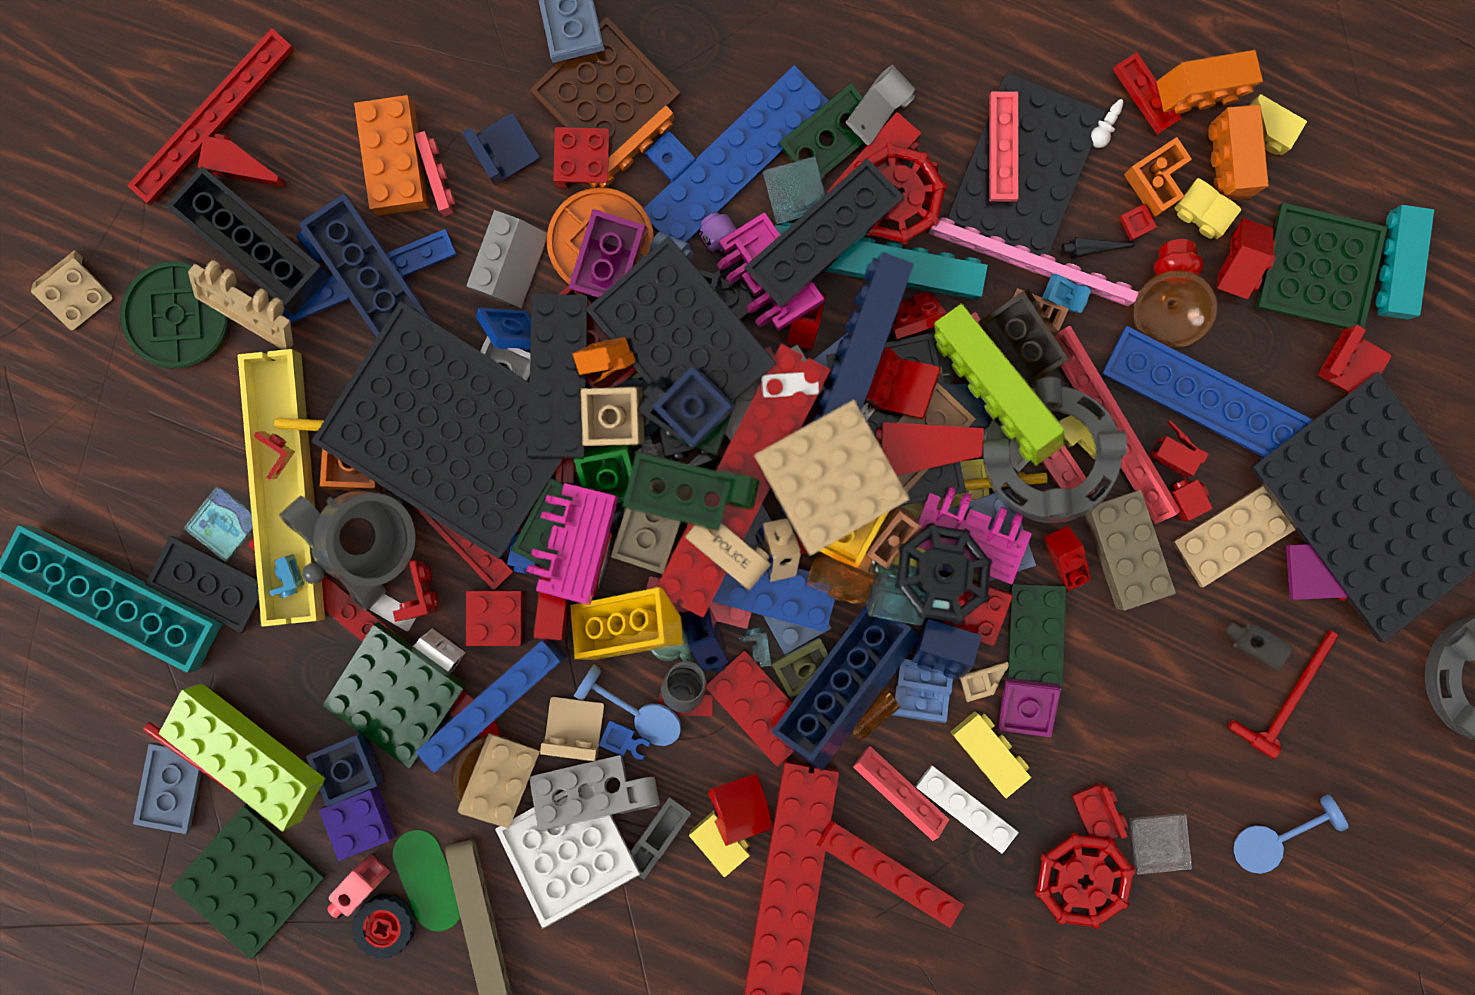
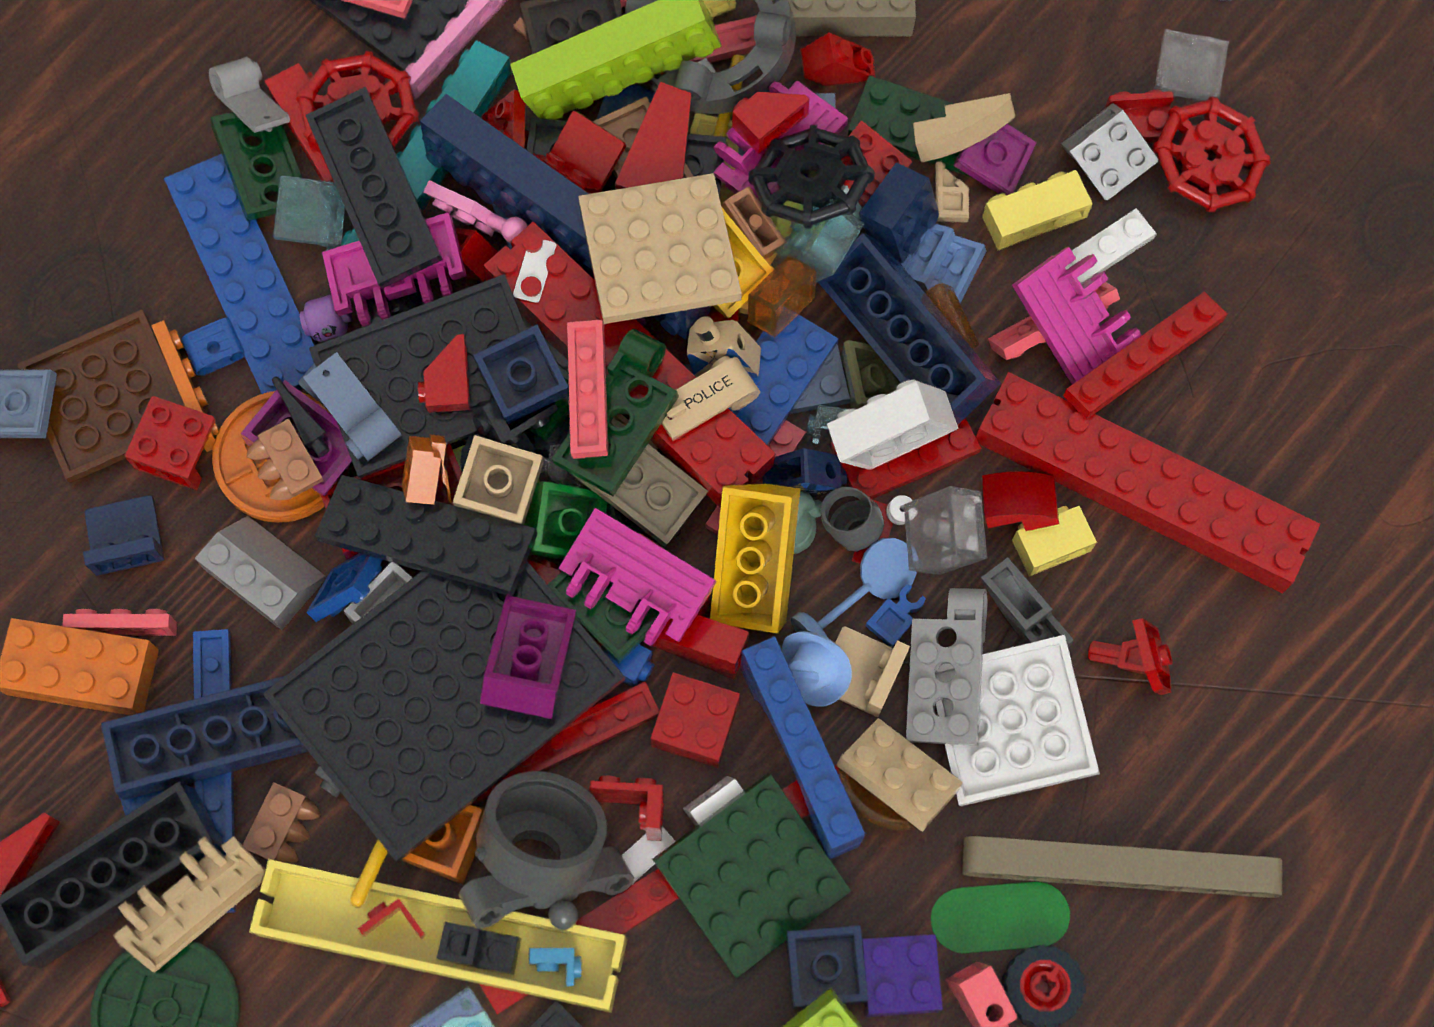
camera: 75 degrees left, 15 degrees down
(278, 533) = (479, 948): none -> black slope
(330, 342) = (278, 824): none -> nougat plate
(486, 485) = (527, 657): none -> magenta slope
(557, 695) = (818, 667): none -> light blue hat
(582, 251) = (287, 461): none -> nougat plate
(610, 258) = (309, 430): none -> black piece
(631, 288) = (352, 407): none -> sand blue door
(647, 934) = (1139, 655): none -> red piece
(674, 351) = (447, 379): none -> red slope
(694, 760) = (945, 530): none -> clear brick
(697, 461) = (587, 389): none -> coral plate
(709, 713) = (893, 511): none -> white piece
(757, 698) = (892, 425): none -> white brick
(834, 317) = (470, 211): none -> bright pink plate
(903, 807) = (1070, 313): none -> dark pink hinge
(982, 522) = (768, 117): none -> red slope
(1035, 677) = (963, 126): none -> tan slope
(1060, 798) = (1110, 151): none -> bracket

